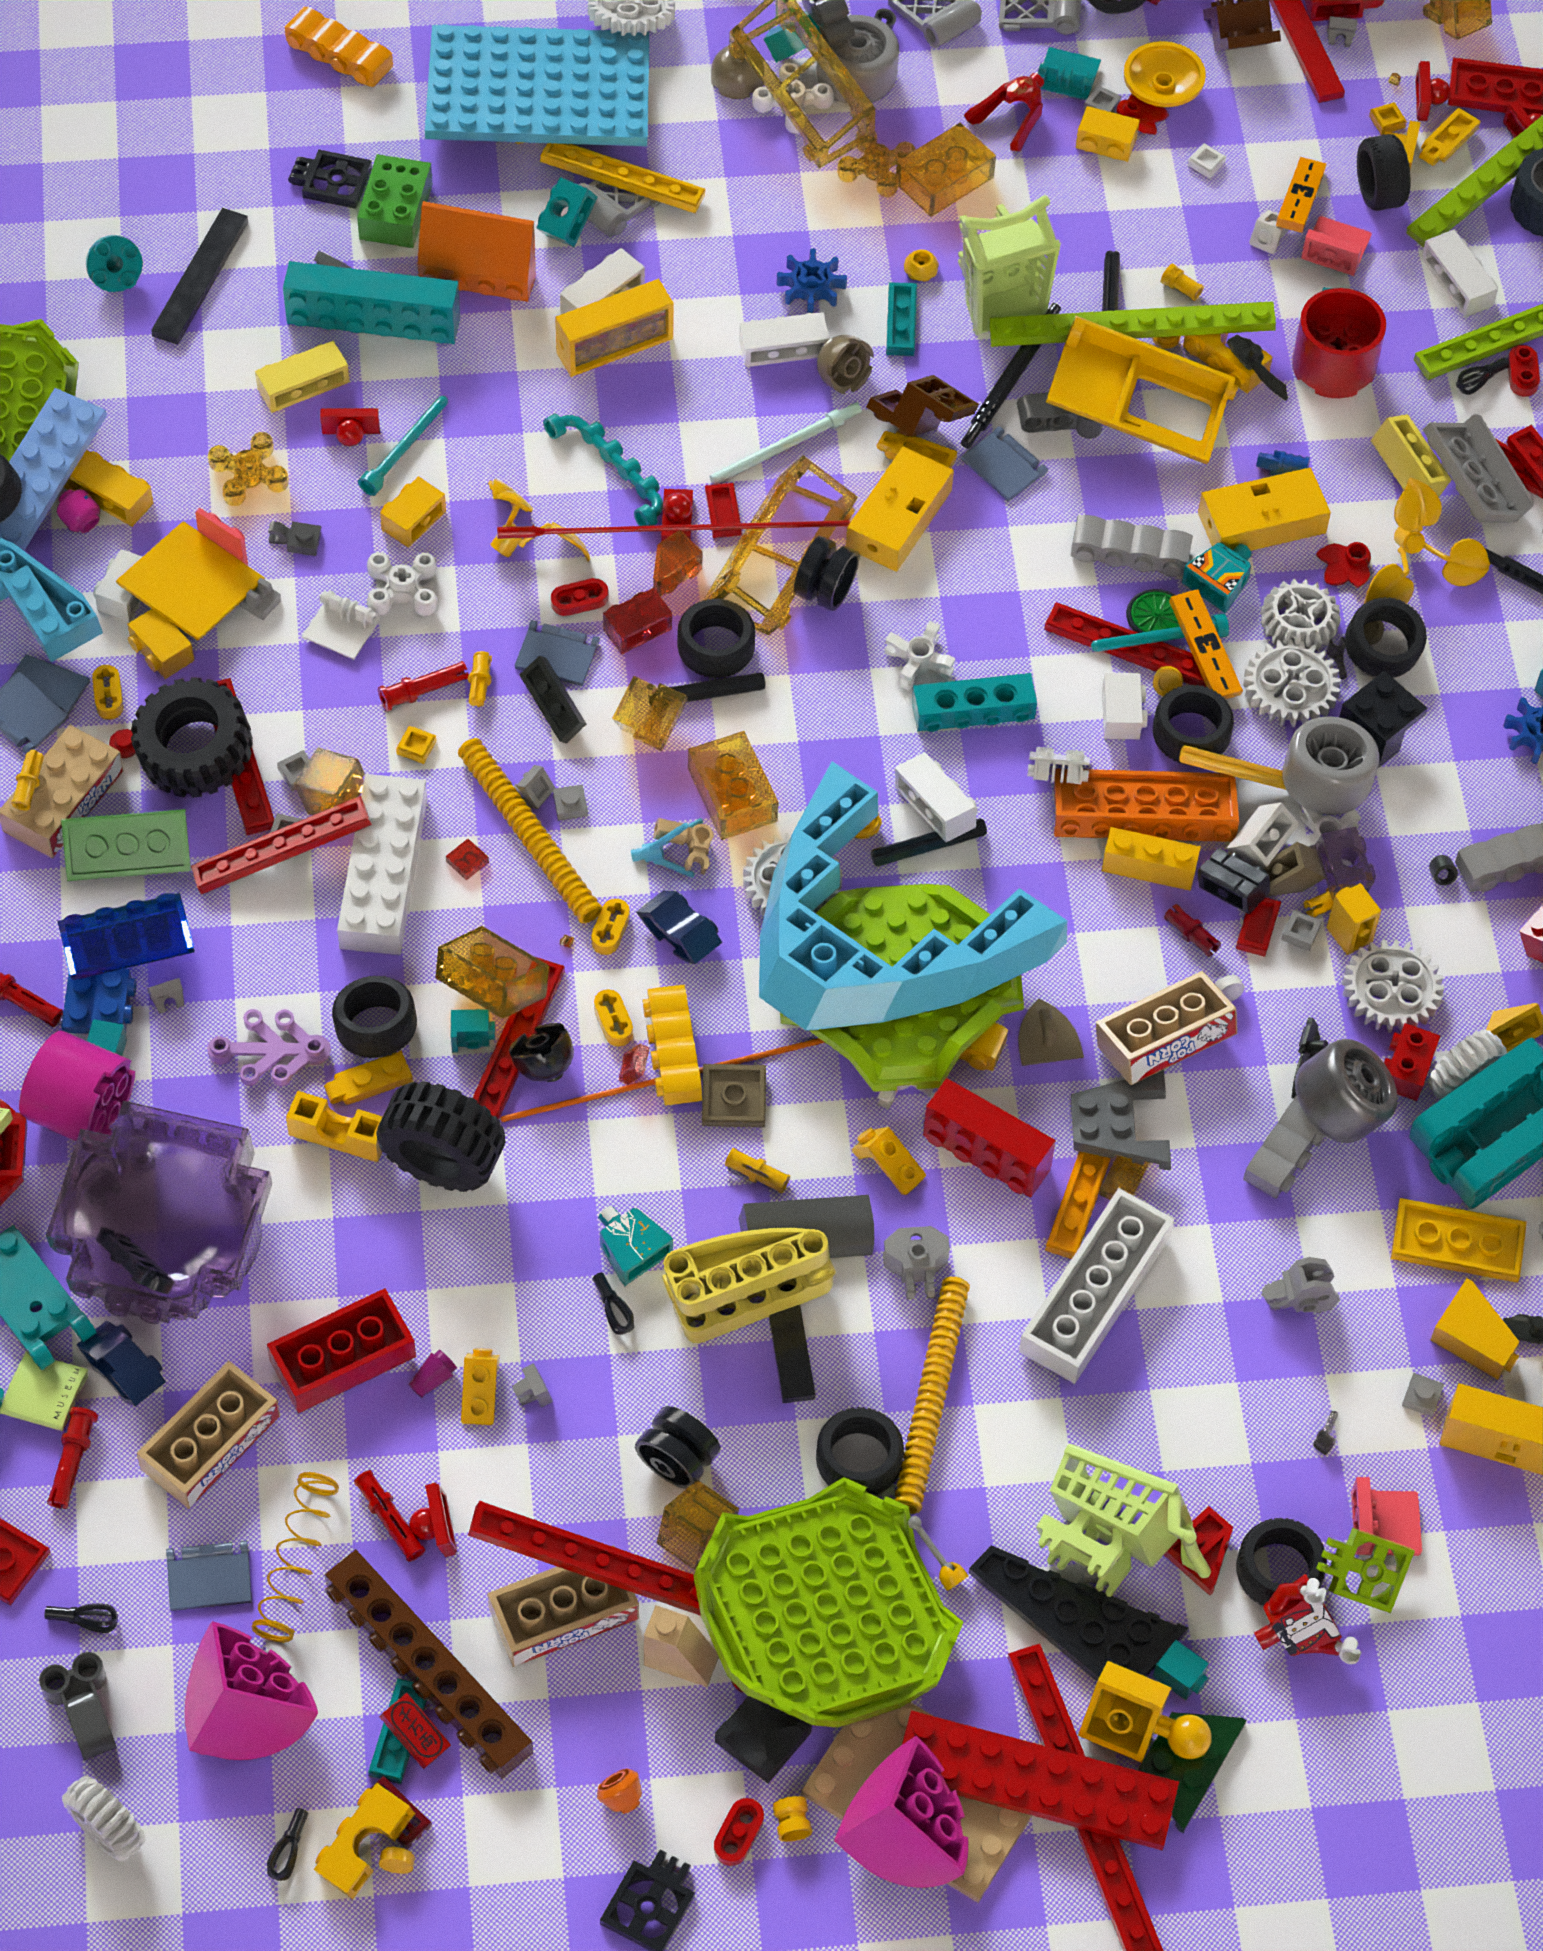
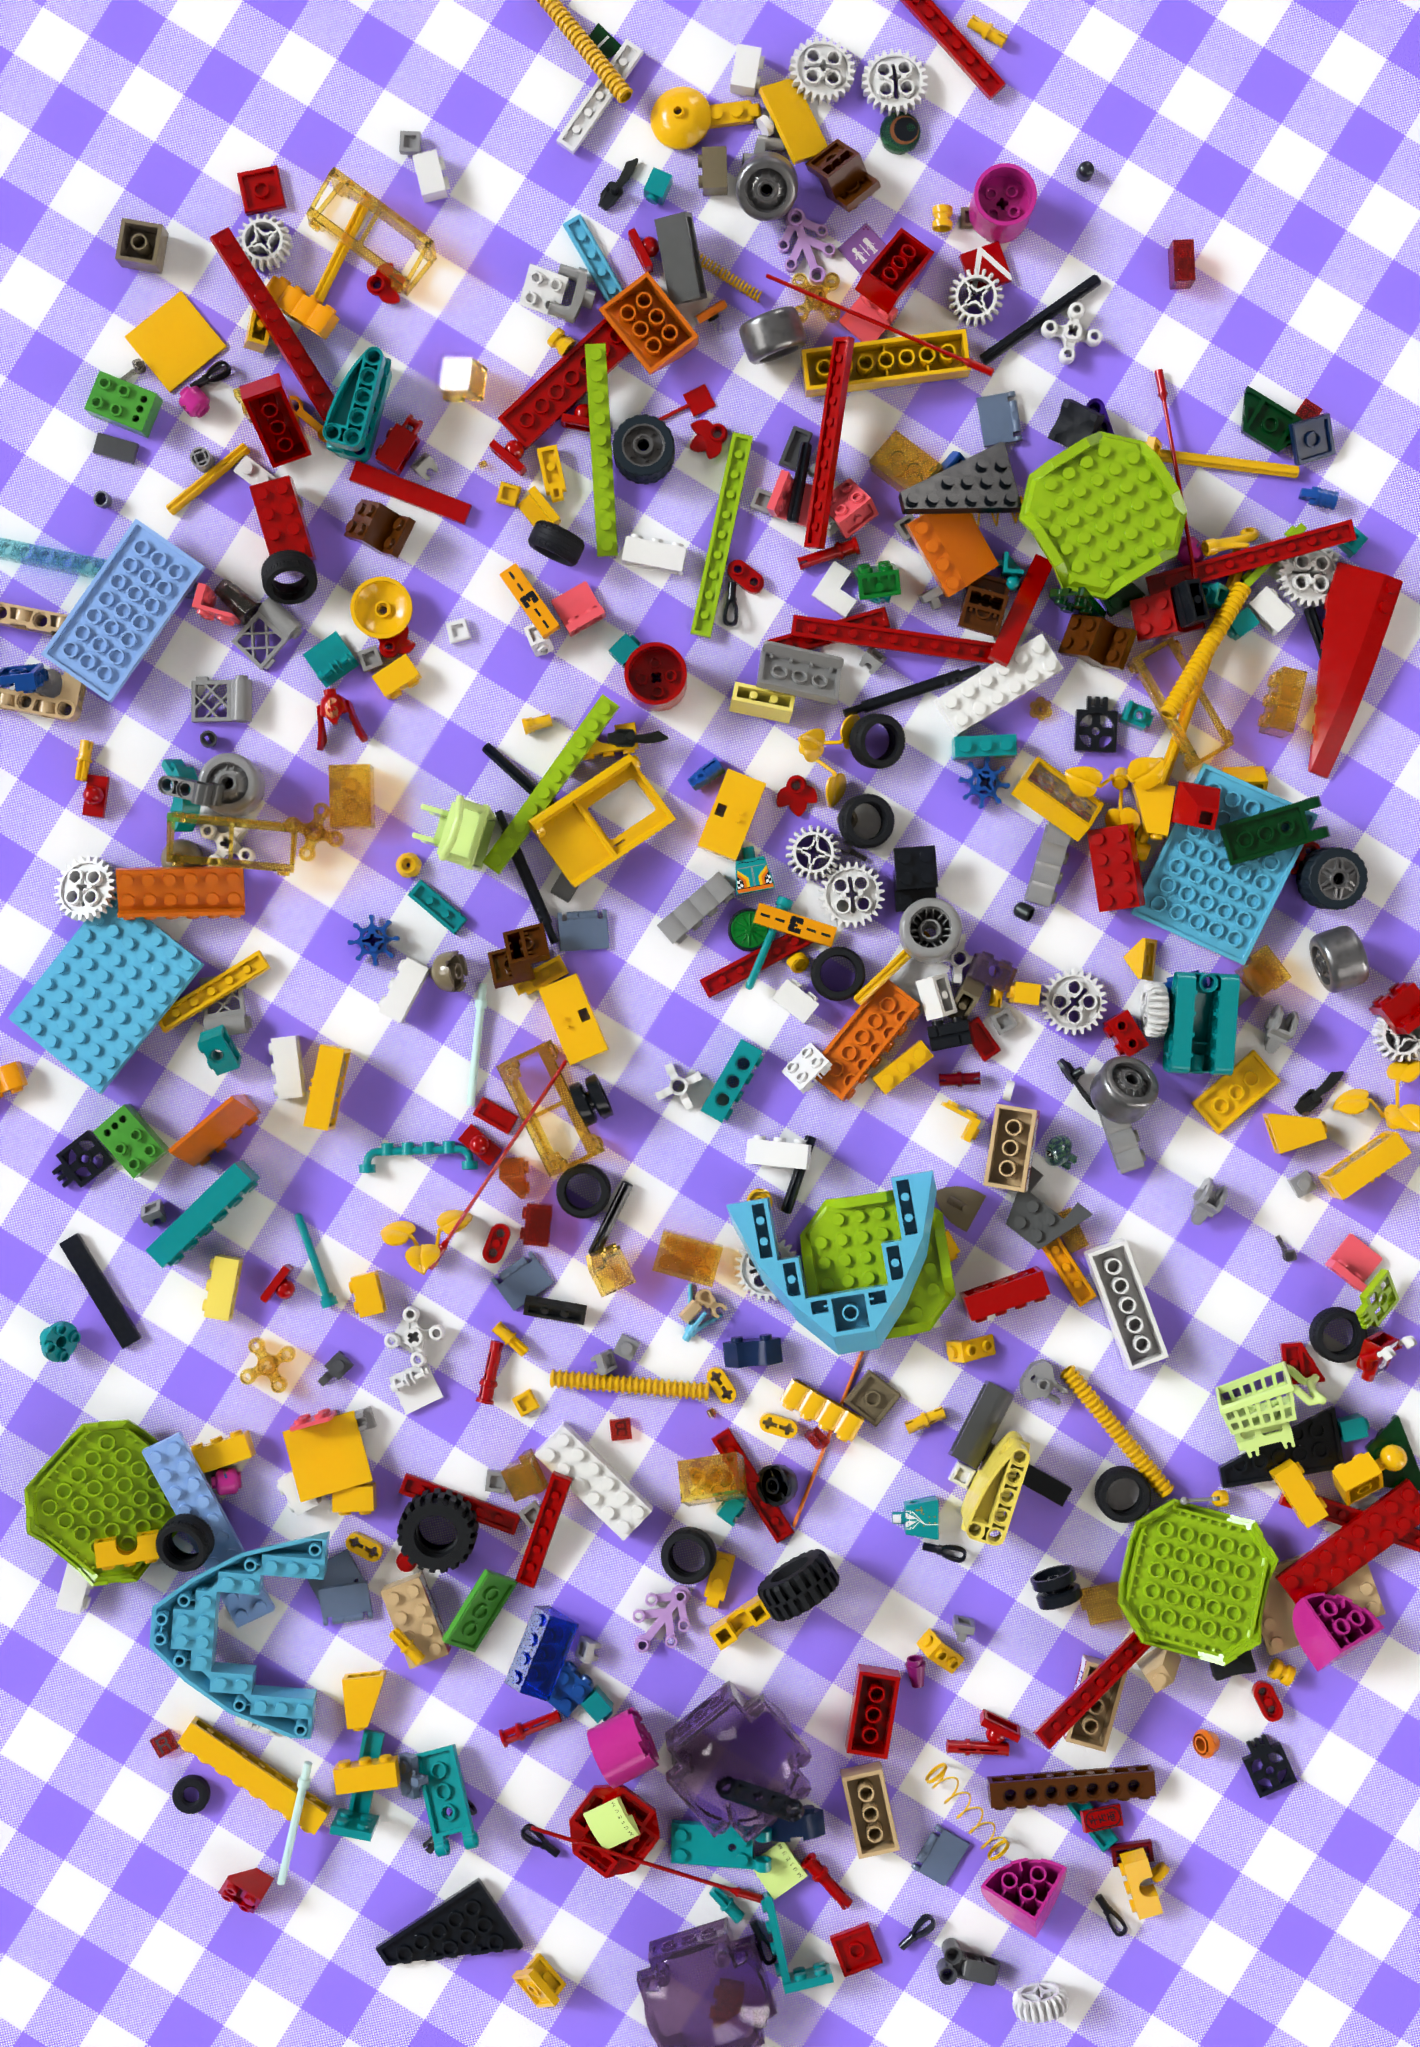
camera: 50 degrees left, 30 degrees up
(706, 81) = (180, 892): none -> orange bracket
(1045, 1653) = (1299, 1492): none -> yellow brick
(1153, 977) = (971, 1130): none -> yellow bracket
(1207, 1089) = (1059, 1152): none -> piece
(1504, 572) = (895, 746): none -> black tyre

